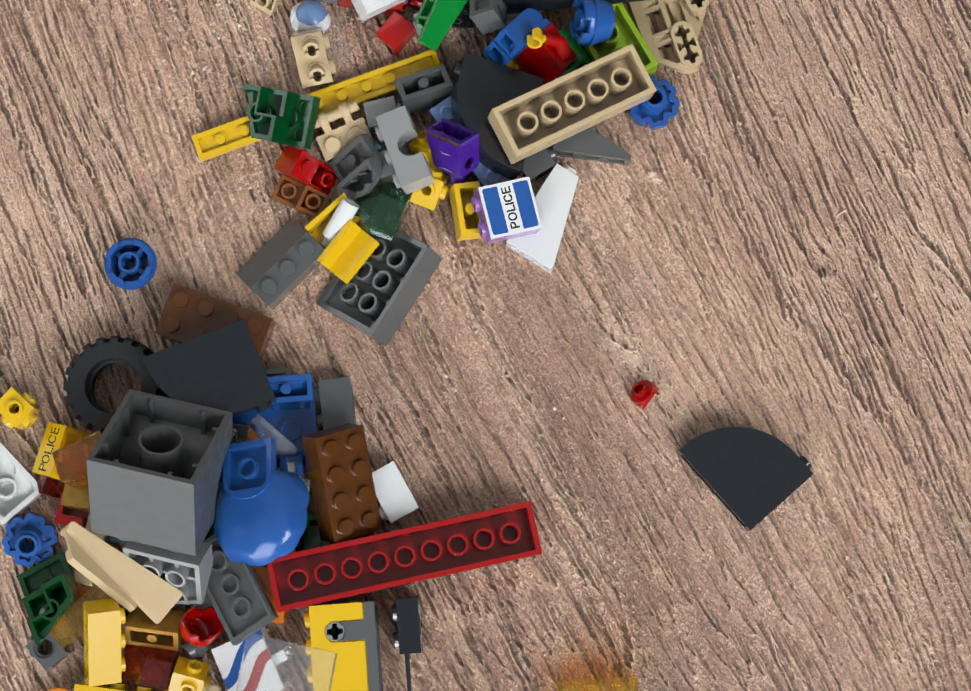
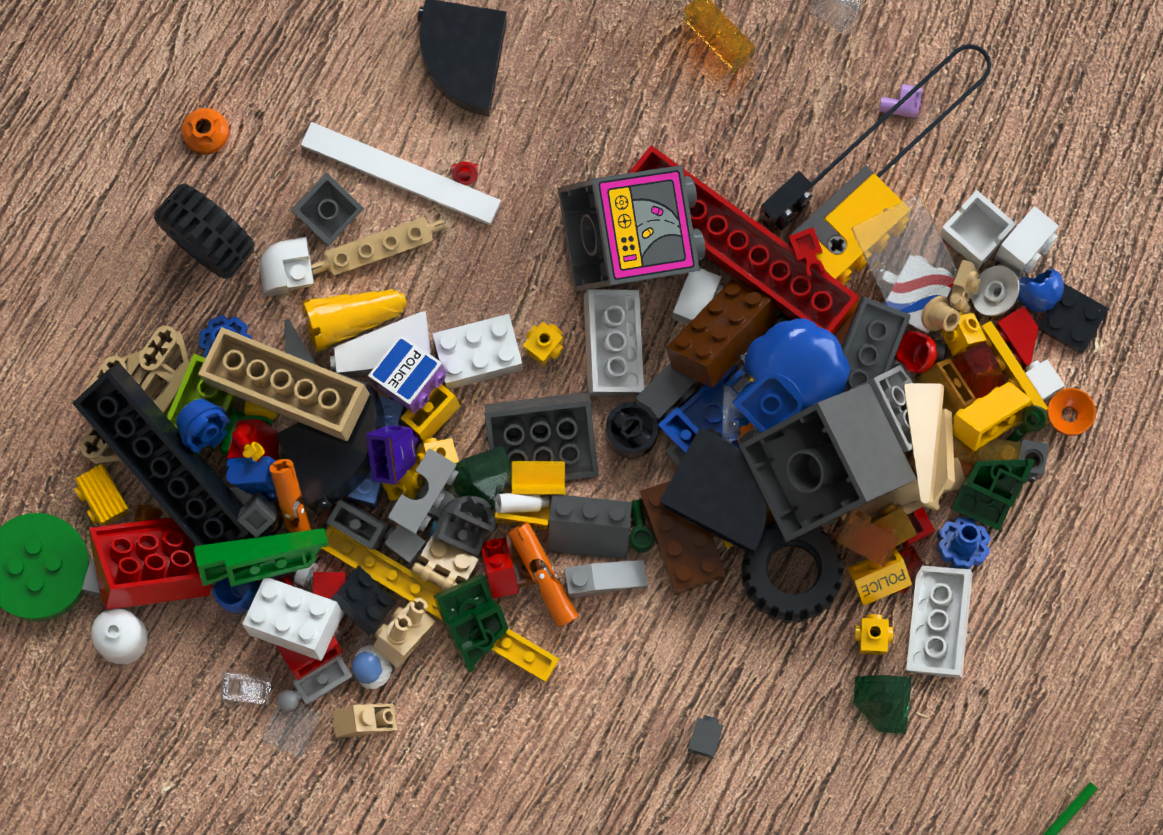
camera: 130 degrees left, 5 degrees down
(50, 221) = (705, 736): none -> dark grey brick
(74, 675) = (1033, 419): none -> dark green plate
(130, 263) = (687, 639): blue cone -> none
(213, 670) = (939, 315): none -> tan piece
(232, 242) = (605, 578): none -> light grey slope
(242, 296) = (641, 537): none -> dark green plate
(259, 195) = (551, 589): none -> orange piece
(327, 353) = (631, 430): none -> black brick
(349, 603) = (807, 247): none -> red plate
(361, 46) = (363, 600): none -> black plate
(410, 399) = (613, 342): none -> white slope
(449, 333) = (541, 351): none -> yellow brick
(477, 43) = (289, 496): none -> orange piece
(479, 475) = (630, 227): none -> slope
(487, 286) = (478, 351): none -> white brick
(596, 208) = (346, 315): none -> yellow cone
(636, 279) = (378, 246): none -> tan plate
(676, 195) = (286, 267): none -> white brick
(683, 343) = (401, 173): none -> white tile
(698, 259) = (326, 209): none -> dark grey slope
(750, 142) = (204, 231): none -> black tyre
(835, 230) = (210, 141): none -> orange piece

